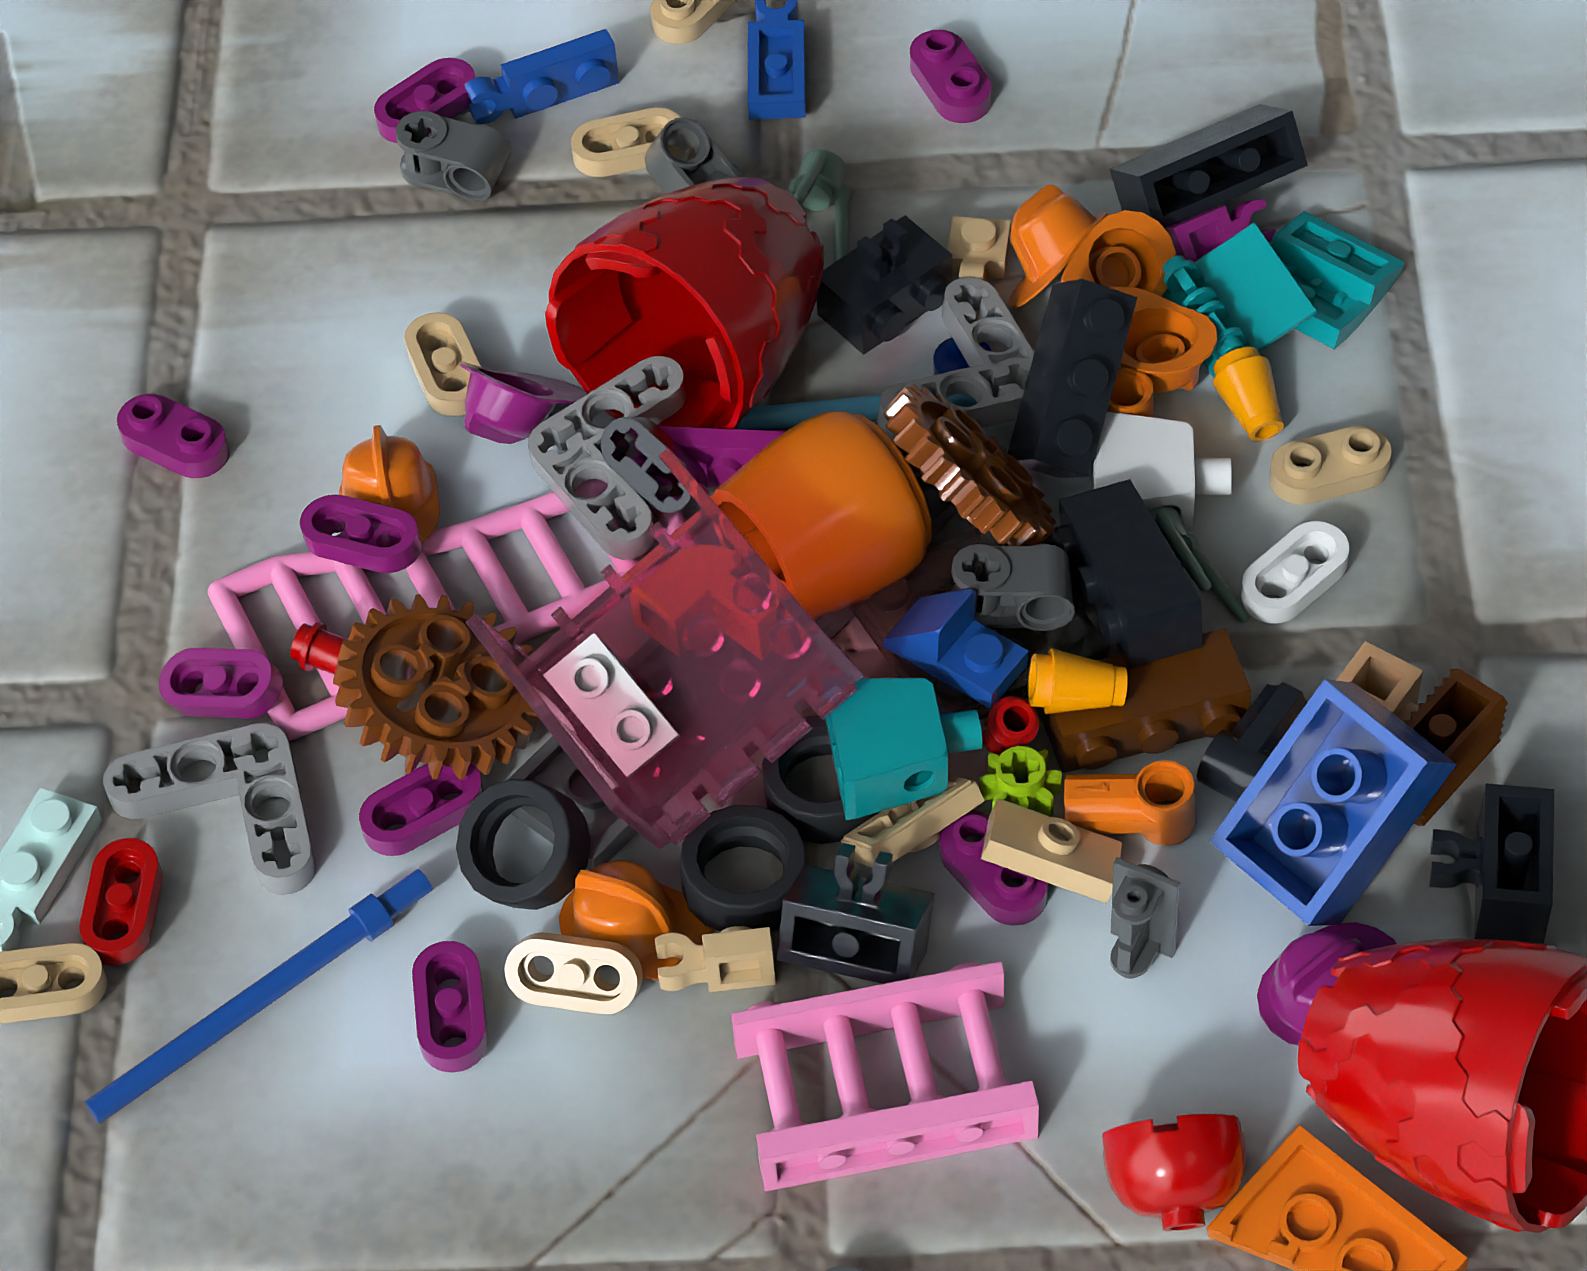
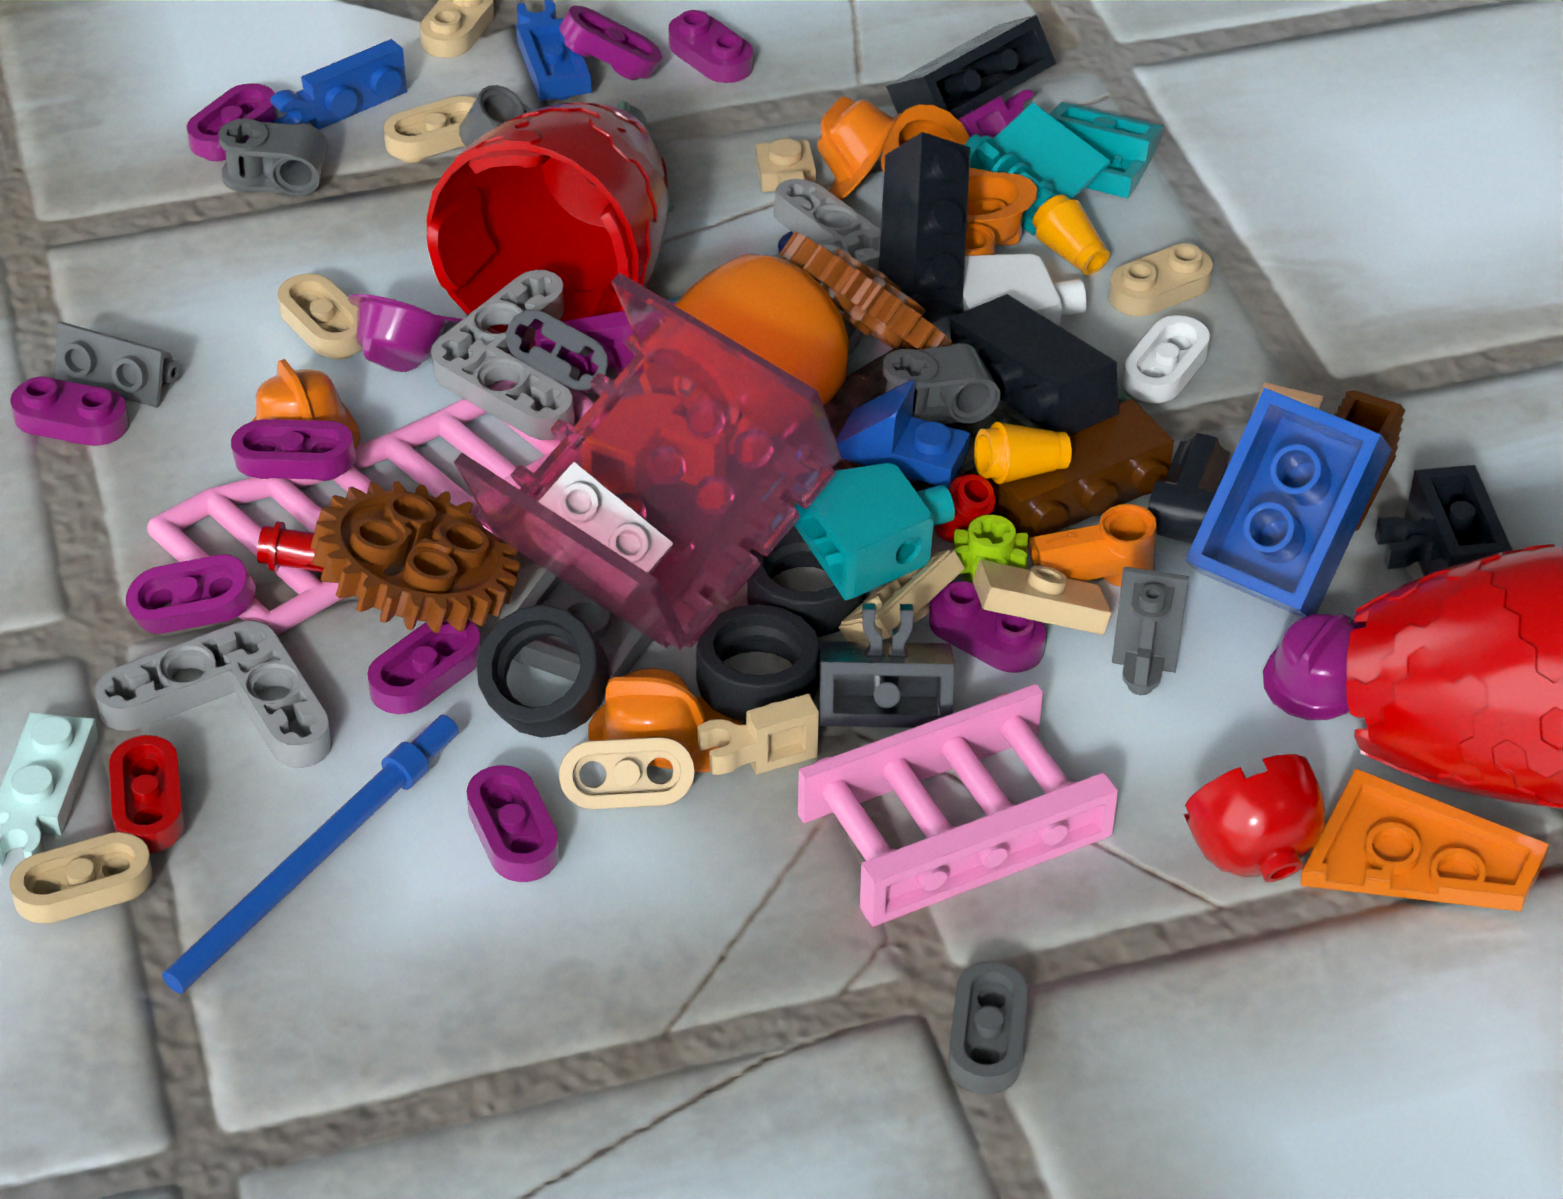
camera: 20 degrees left, 10 degrees down
(224, 390) = (113, 364): none -> dark grey hinge
(837, 62) = (599, 36): none -> magenta plate
(884, 284) = (718, 197): black brick -> none

